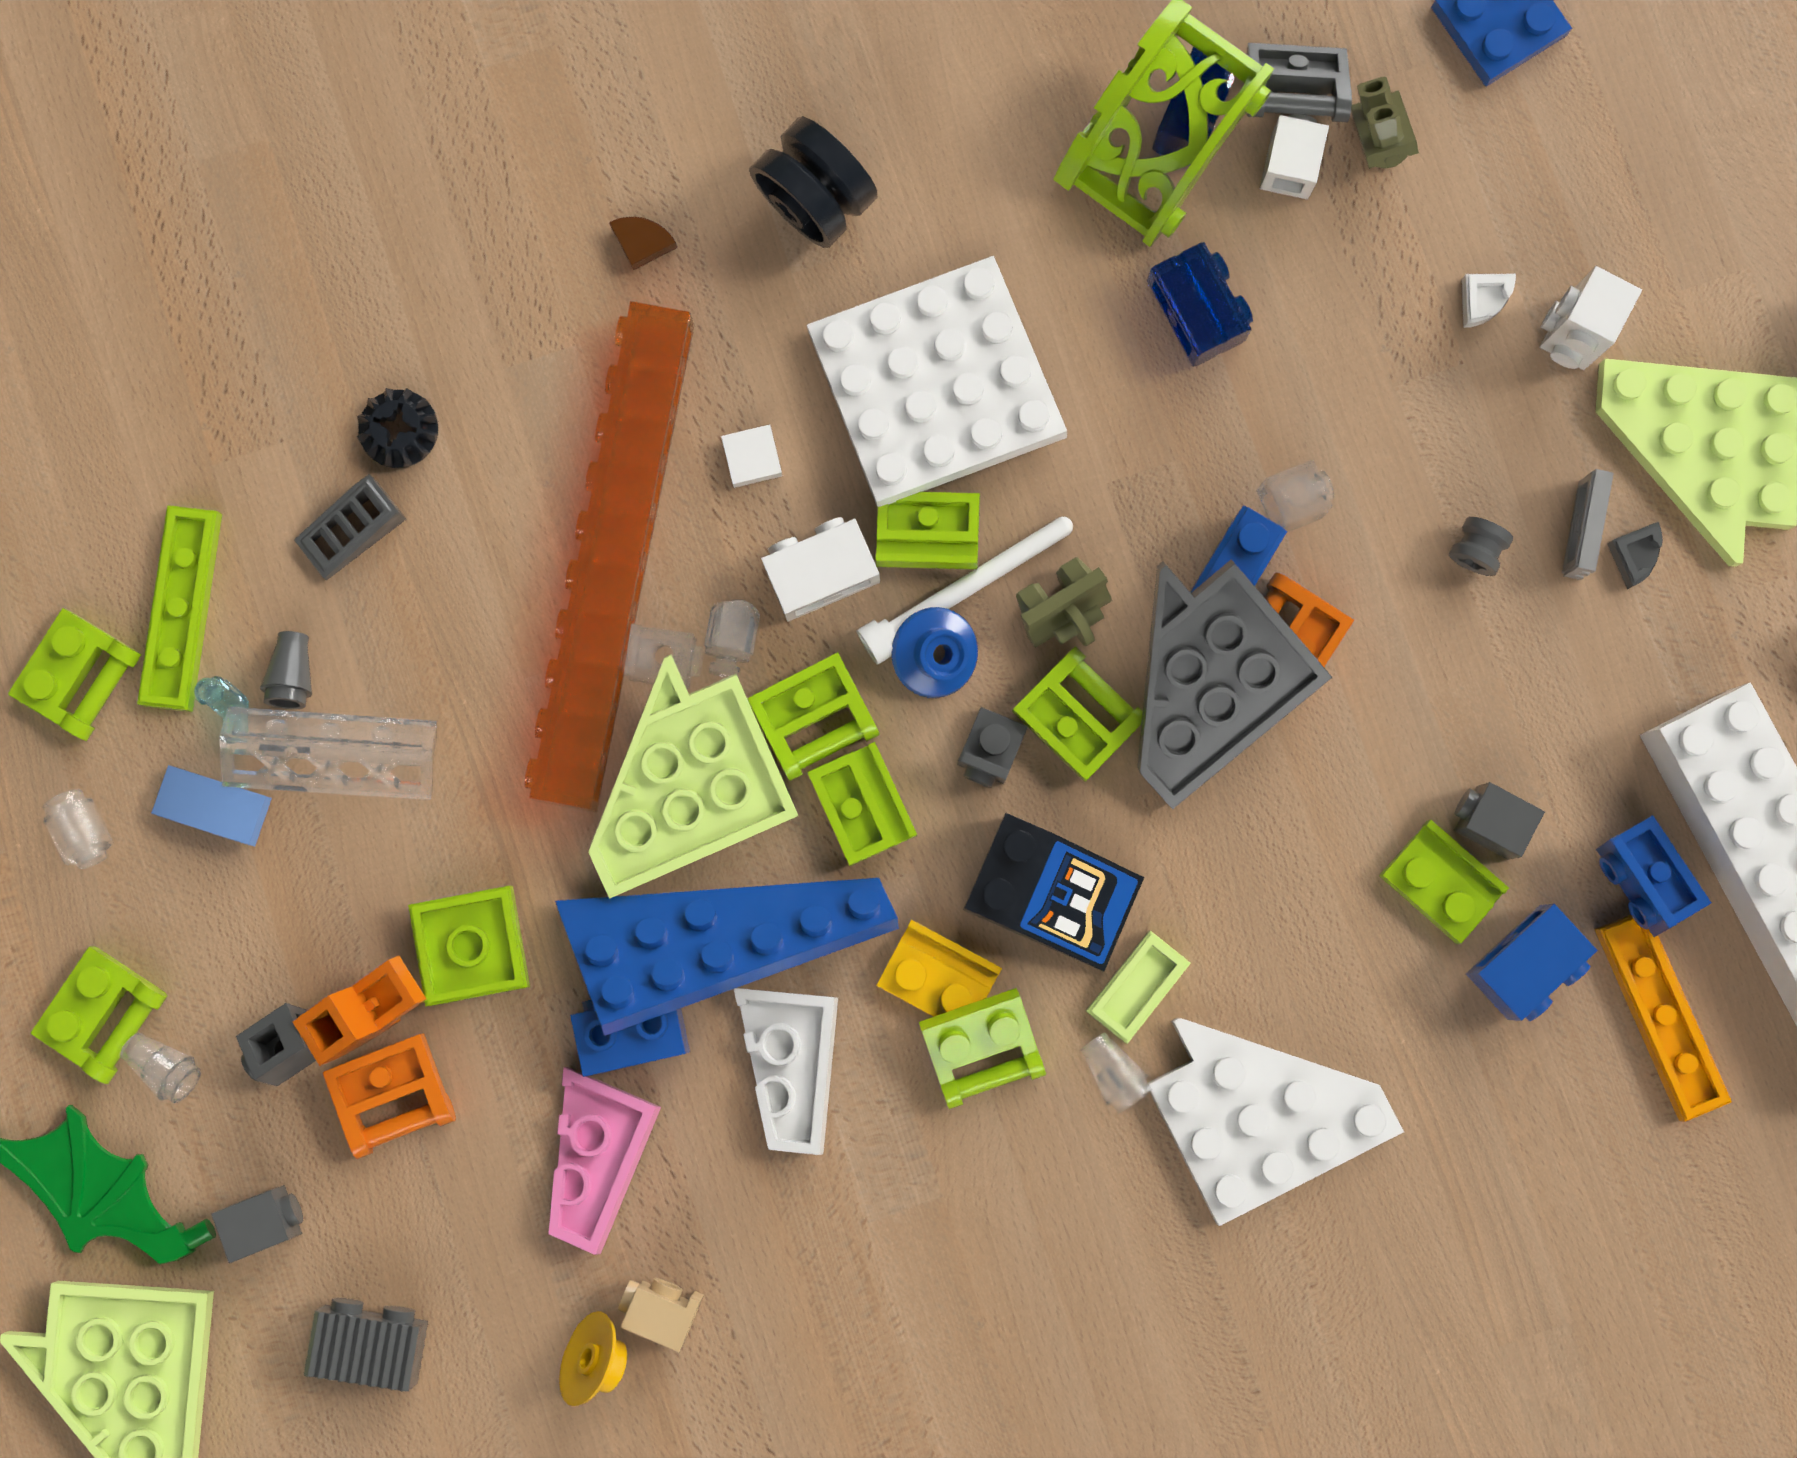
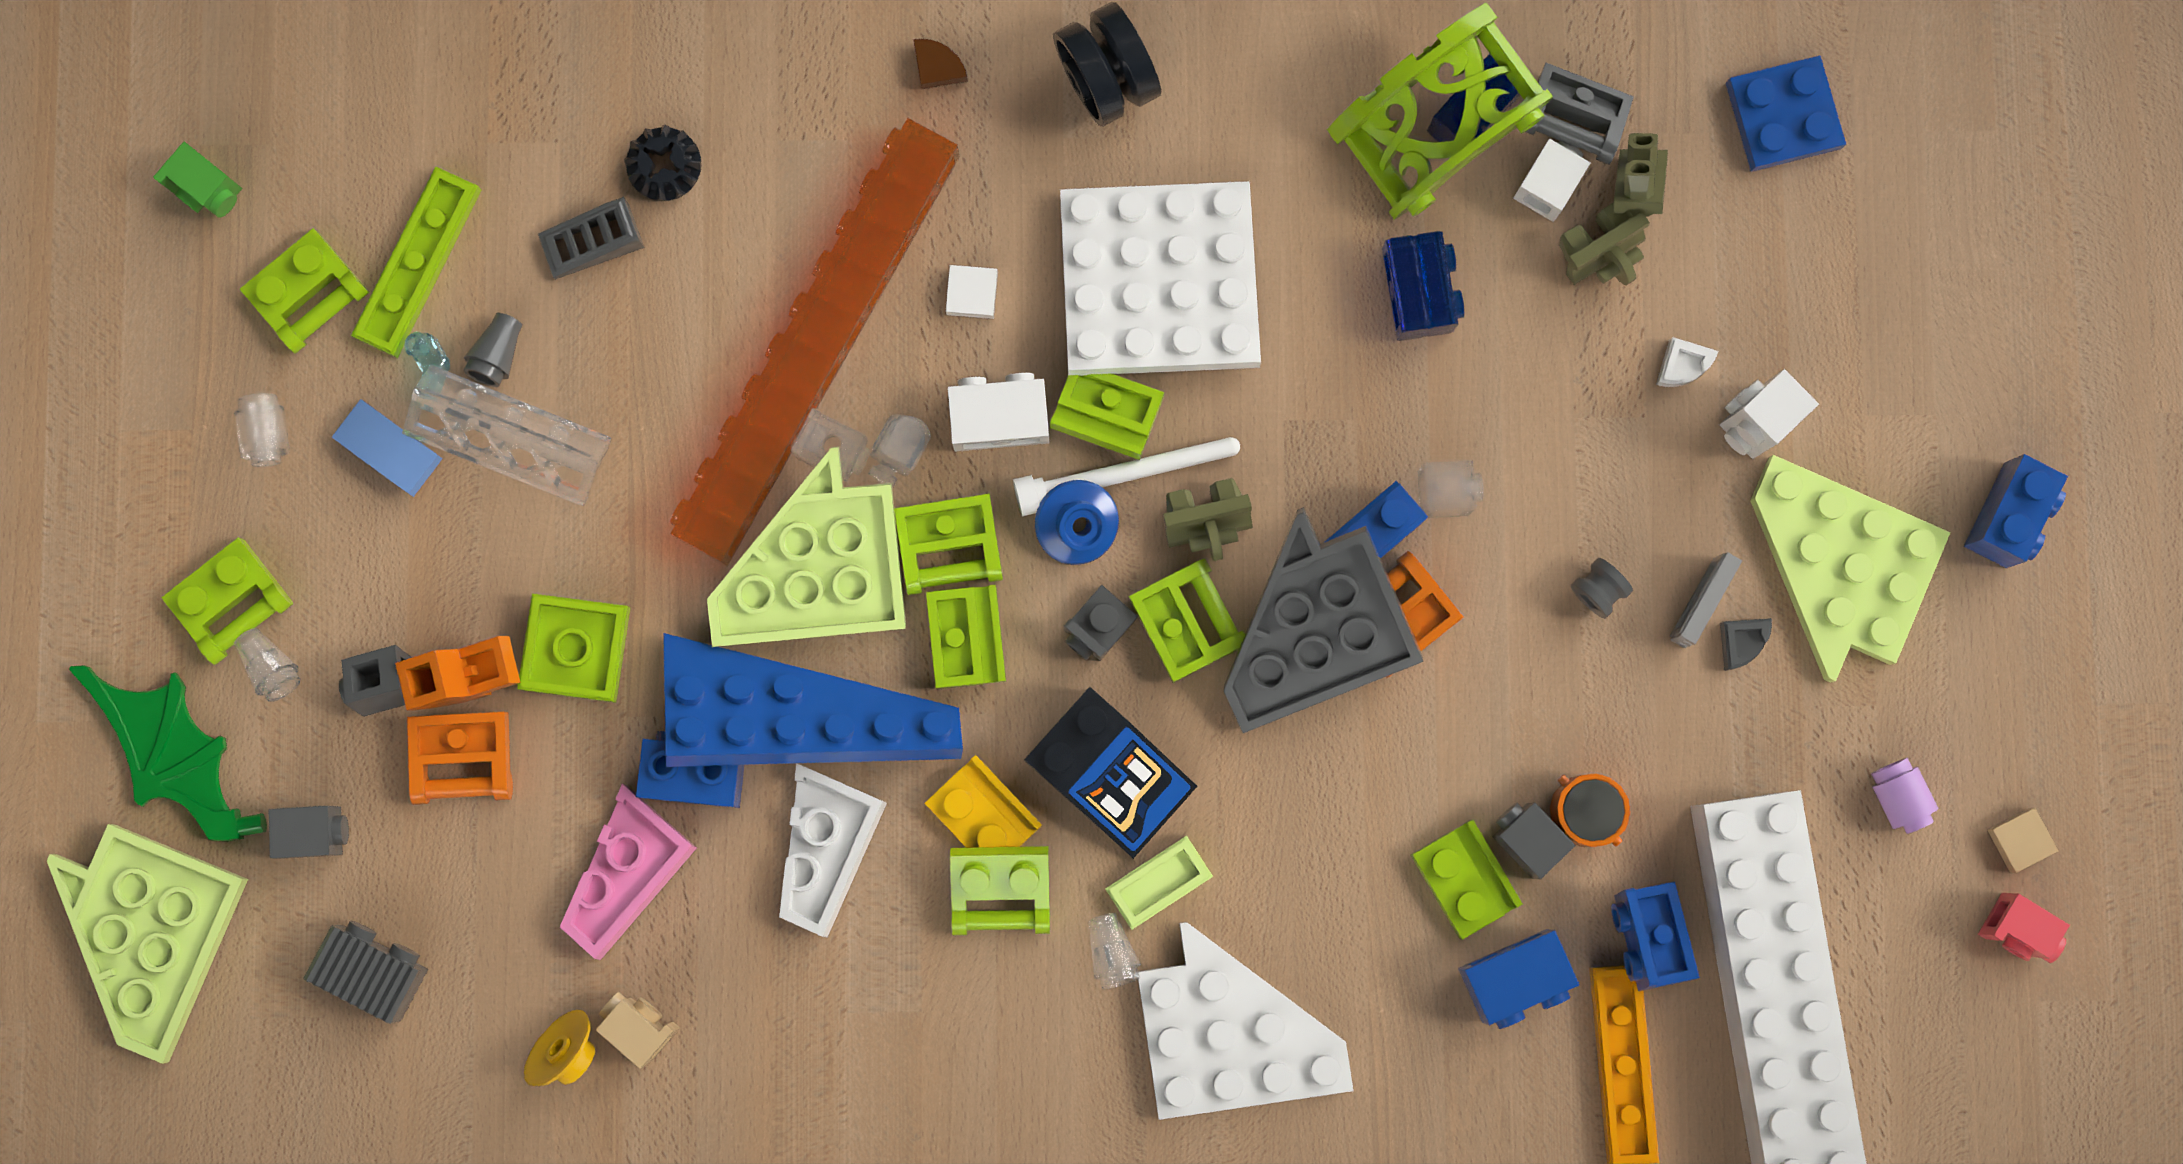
camera: 15 degrees right, 0 degrees up
(1381, 189) = (1621, 235): none -> olive hips
(1545, 770) = (1590, 810): none -> pearl dark grey piece

